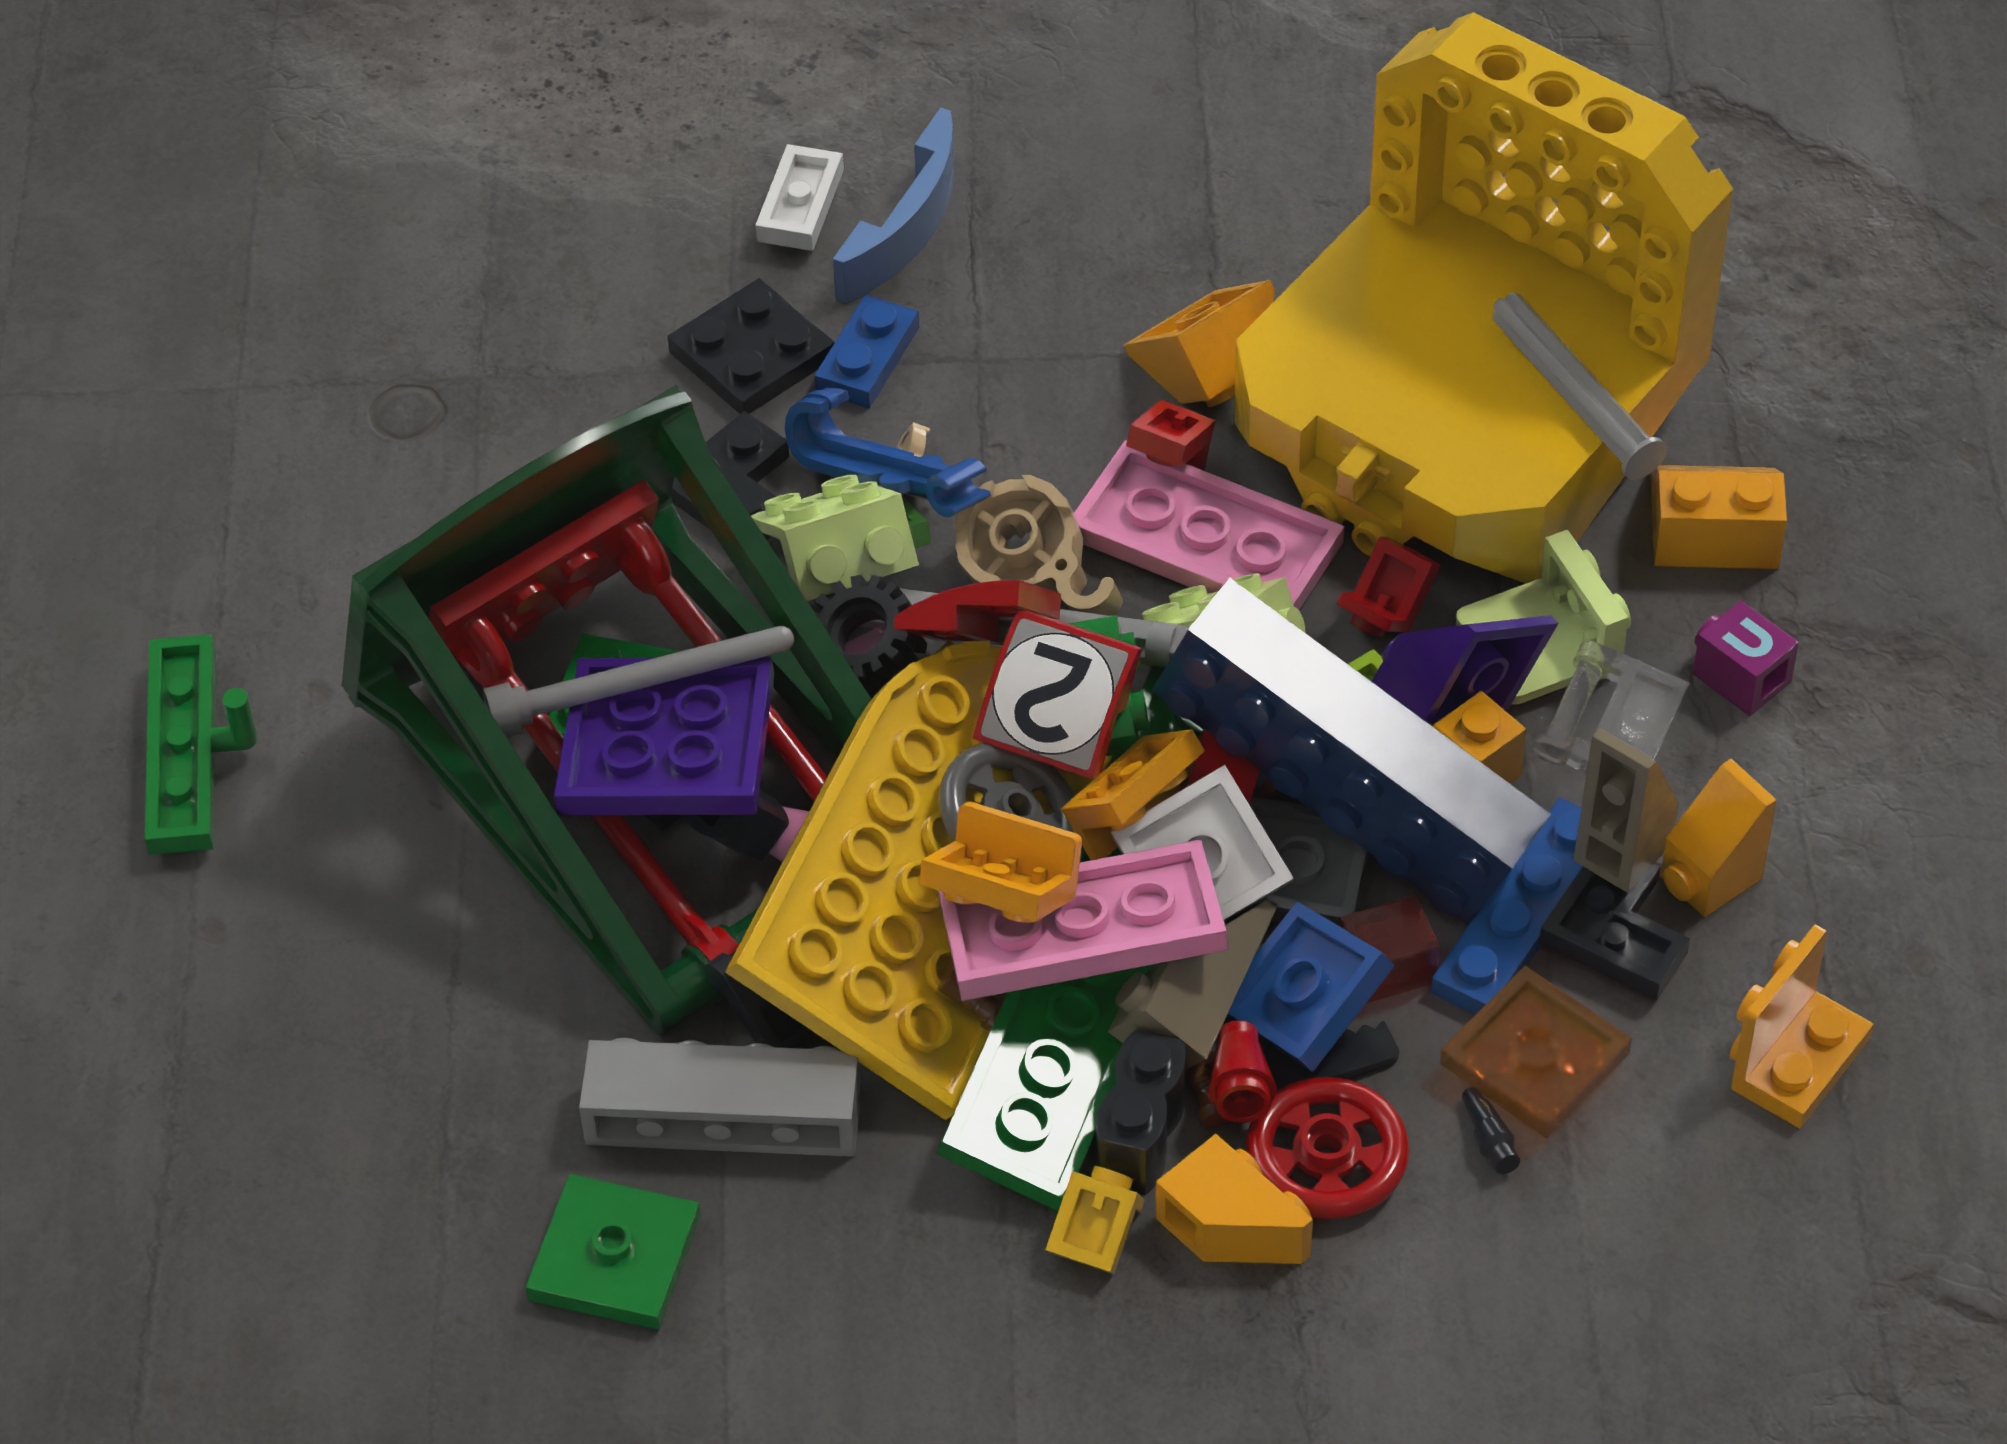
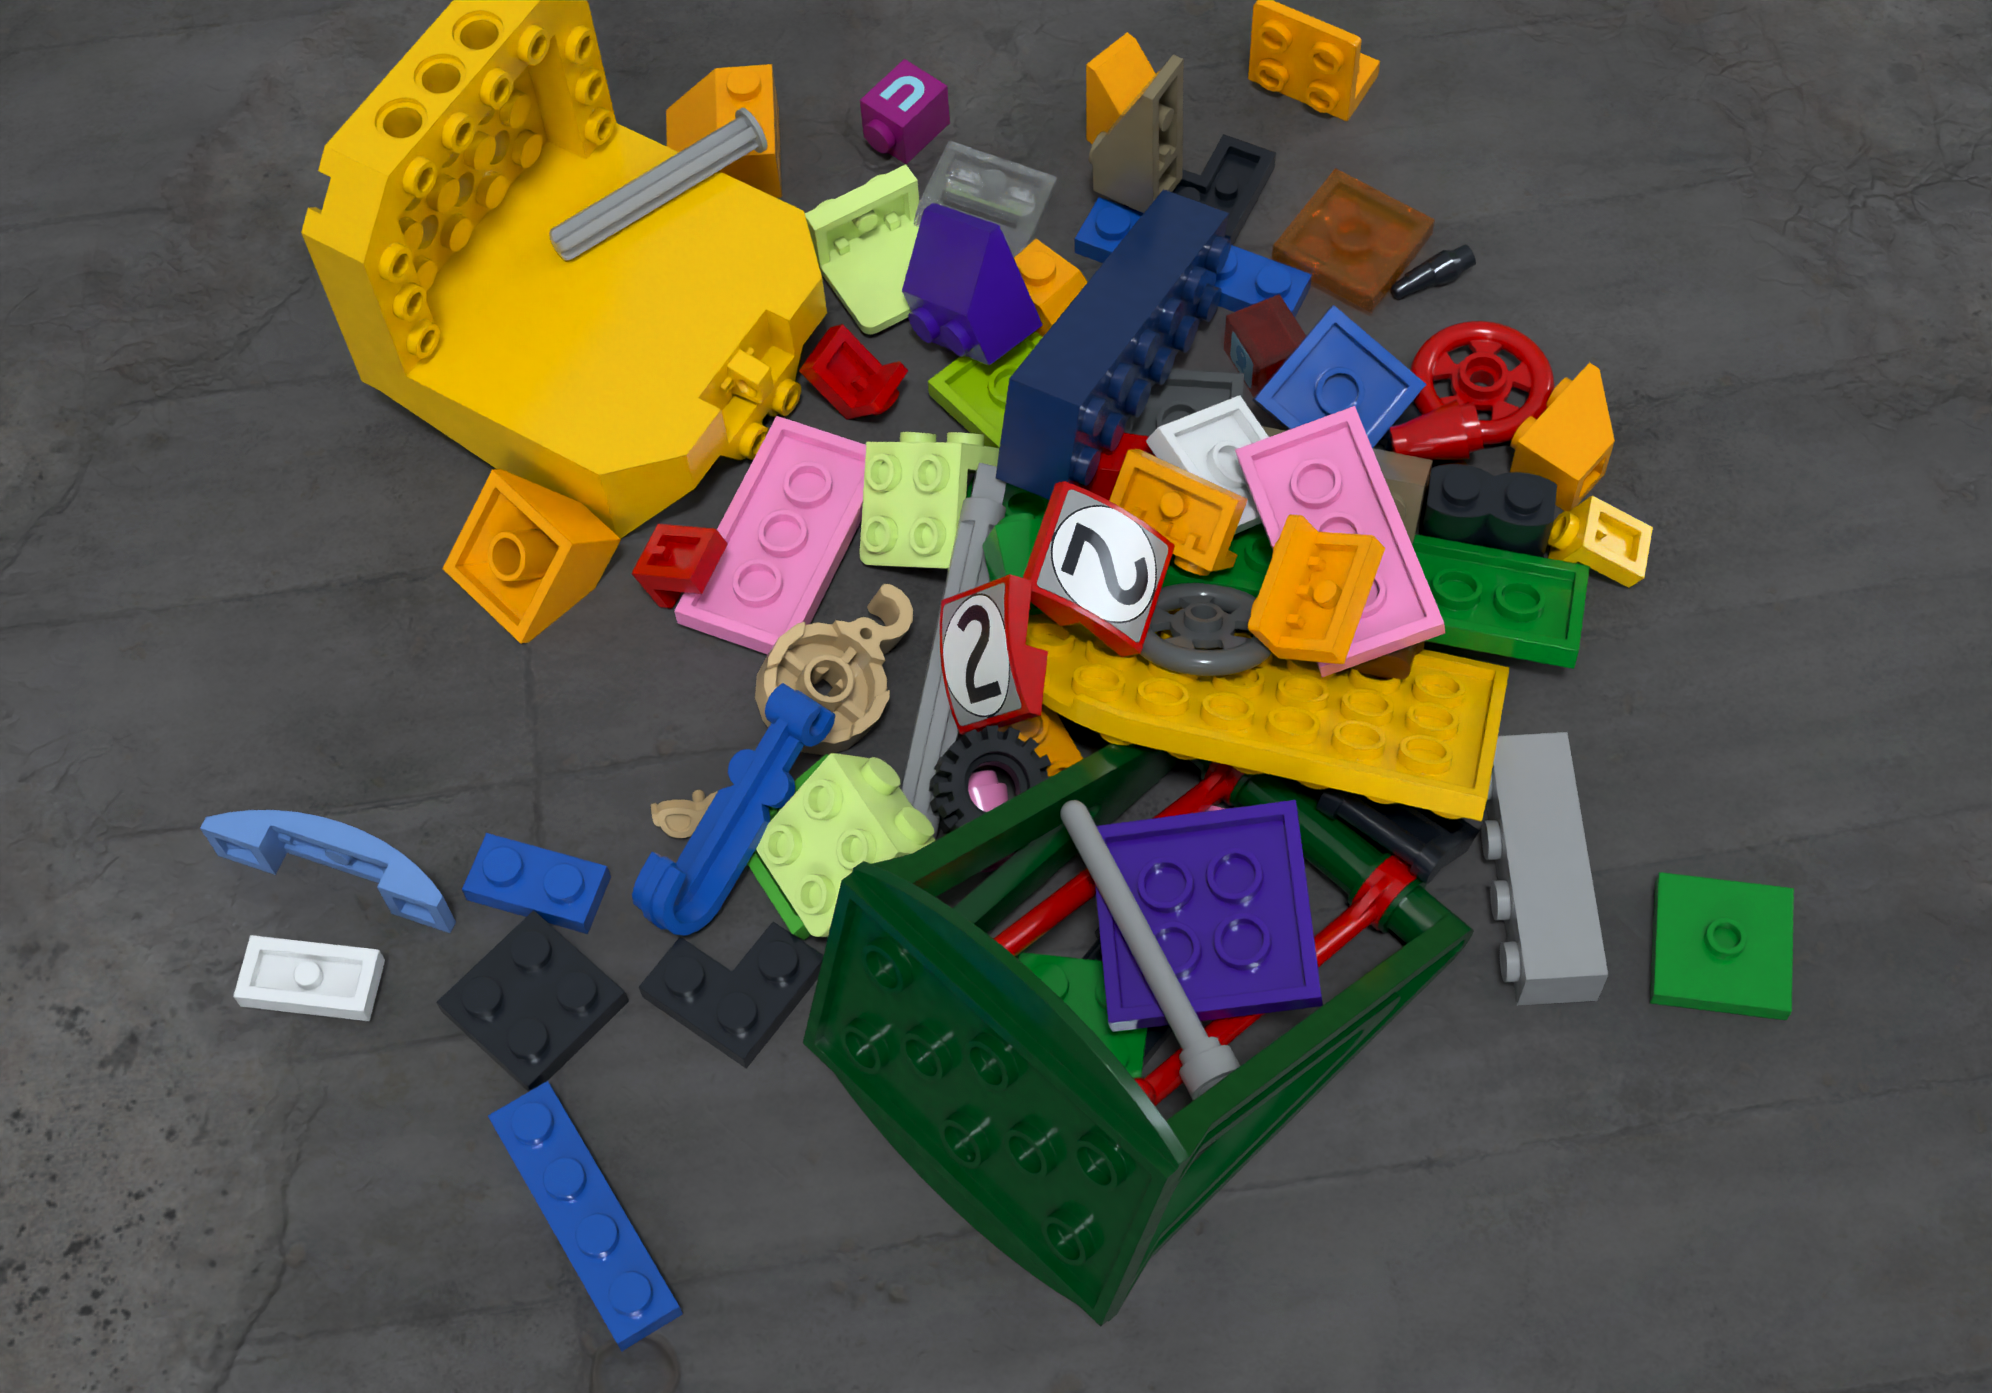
camera: 95 degrees left, 10 degrees up
(548, 377) = (585, 1216): none -> blue plate

